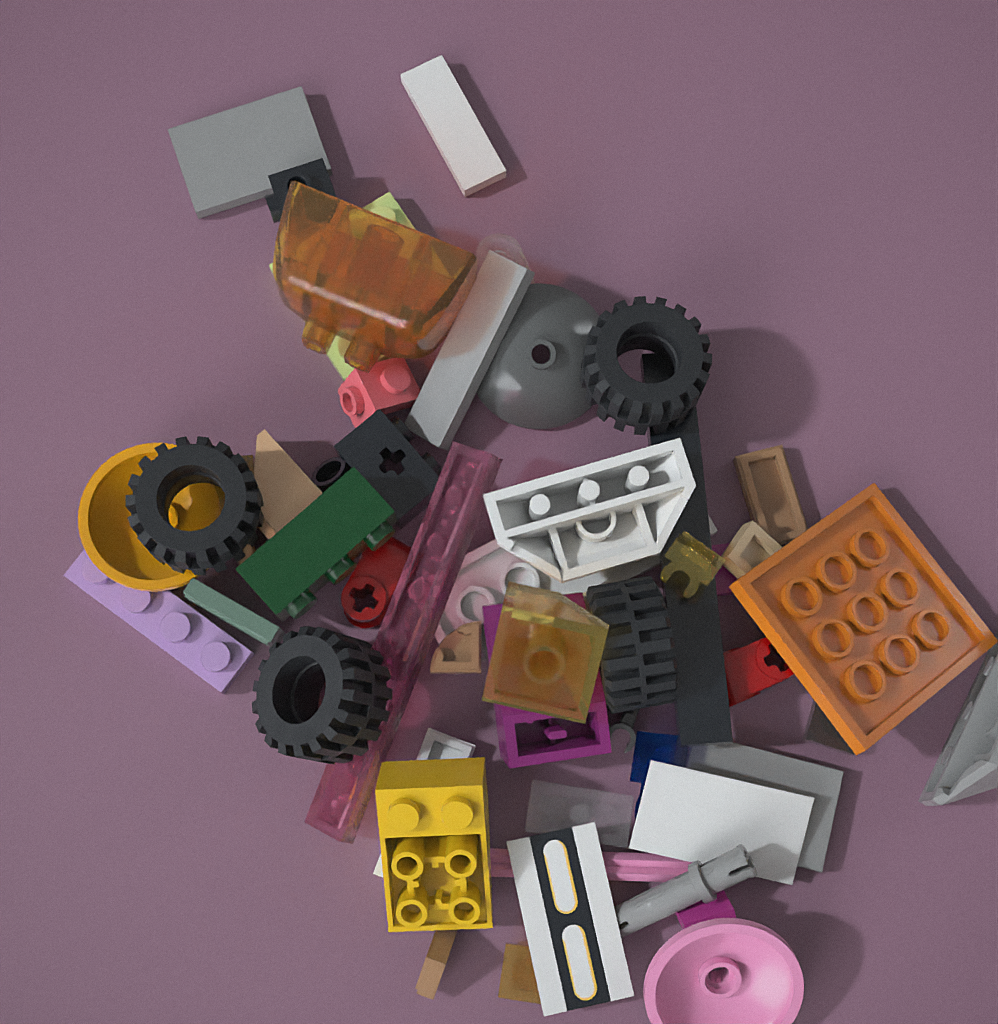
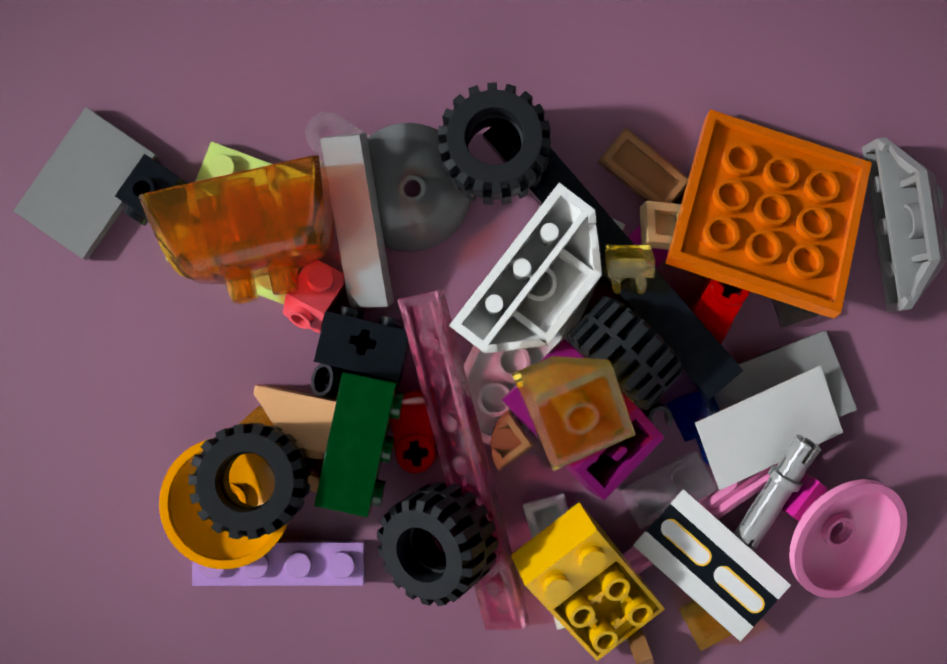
camera: 30 degrees left, 10 degrees up
(233, 613) = (330, 527): sand green tile -> none
(453, 125) = (219, 55): white tile -> none

